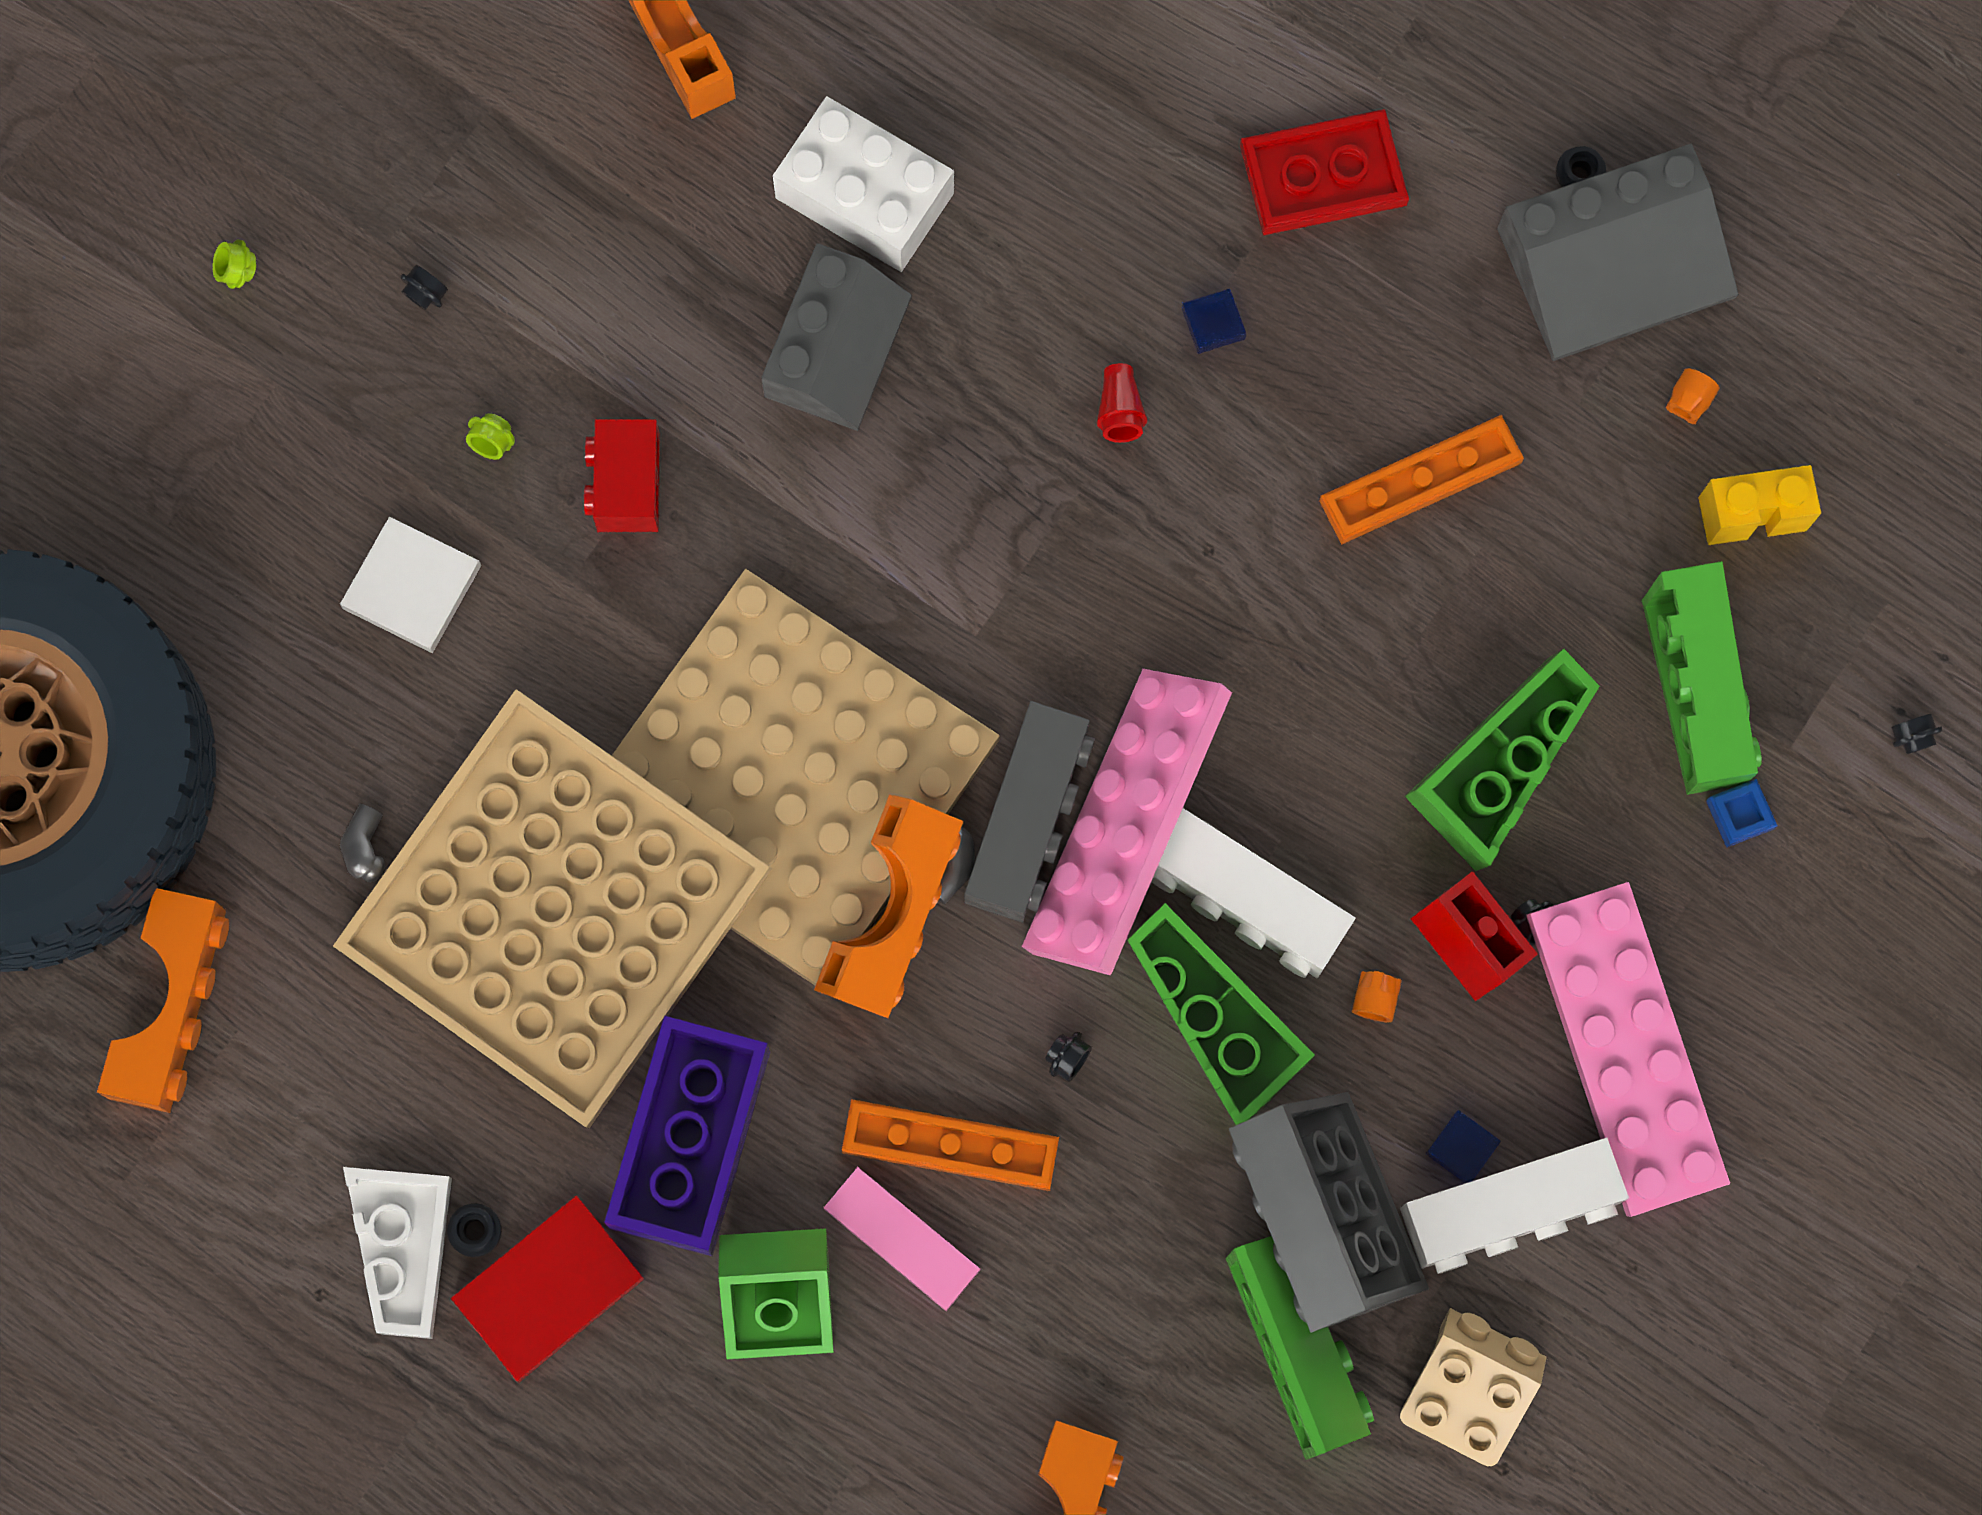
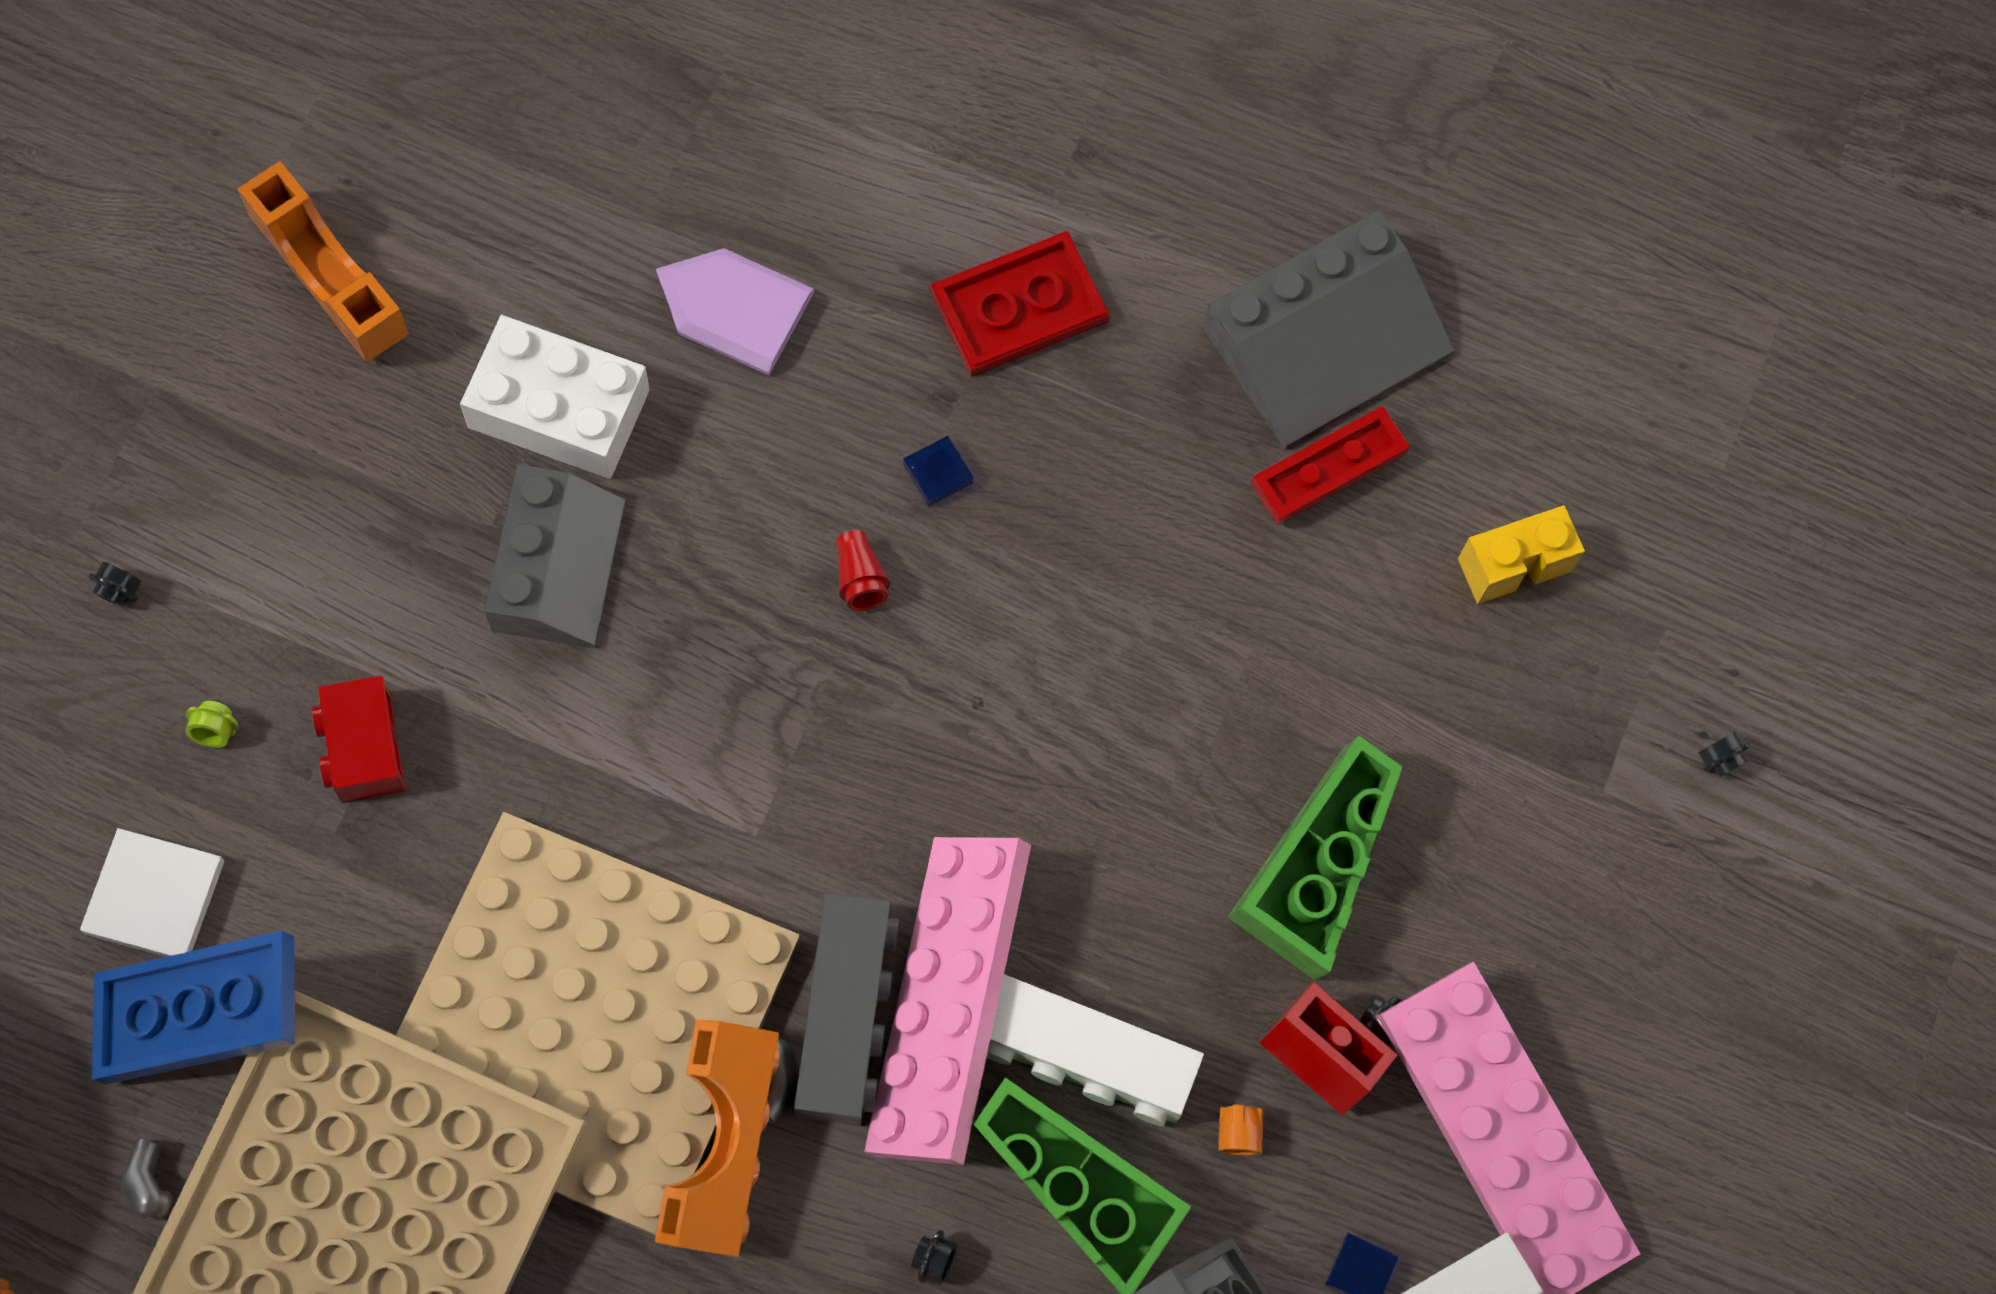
camera: 15 degrees left, 5 degrees down
(433, 695) = (194, 1008): none -> blue plate
(1049, 126) = (734, 306): none -> lavender tile
(1421, 479) = (1178, 592): orange tile -> none
(1579, 157) = (1271, 243): black plate -> none
(1592, 384) = (1330, 465): none -> red plate
(1692, 395) = (1430, 458): orange hose -> none
(1702, 677) = (1501, 738): bright green wedge -> none
(1741, 813) = (1568, 868): blue tile -> none

